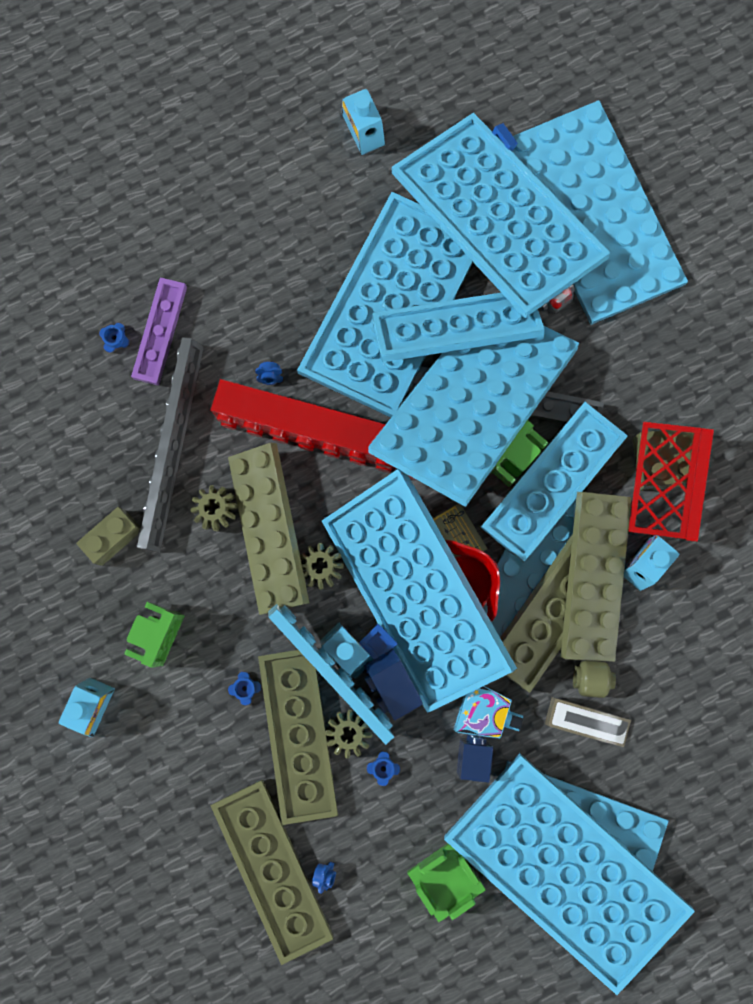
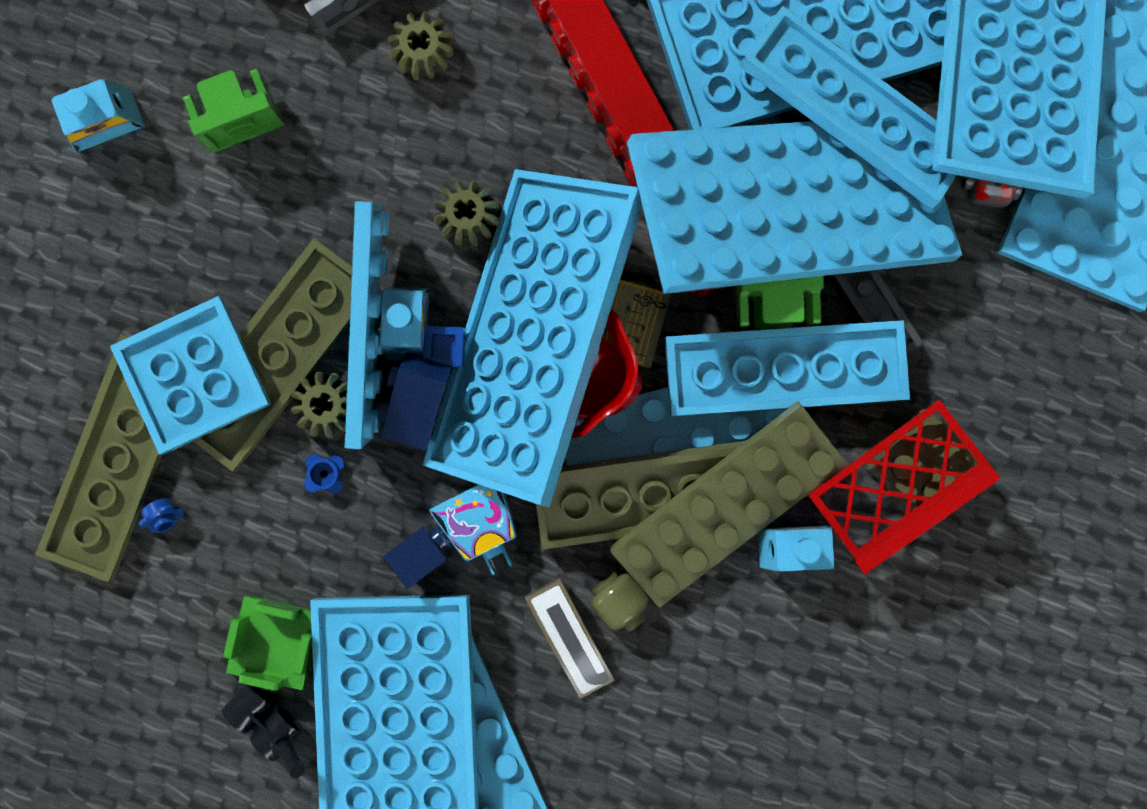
camera: 40 degrees right, 5 degrees up
(244, 696) = (259, 251): blue plate -> none
(268, 528) = (454, 120): olive plate -> none
(268, 789) = (190, 375): none -> medium azure plate
(488, 924) = (272, 726): none -> black beam

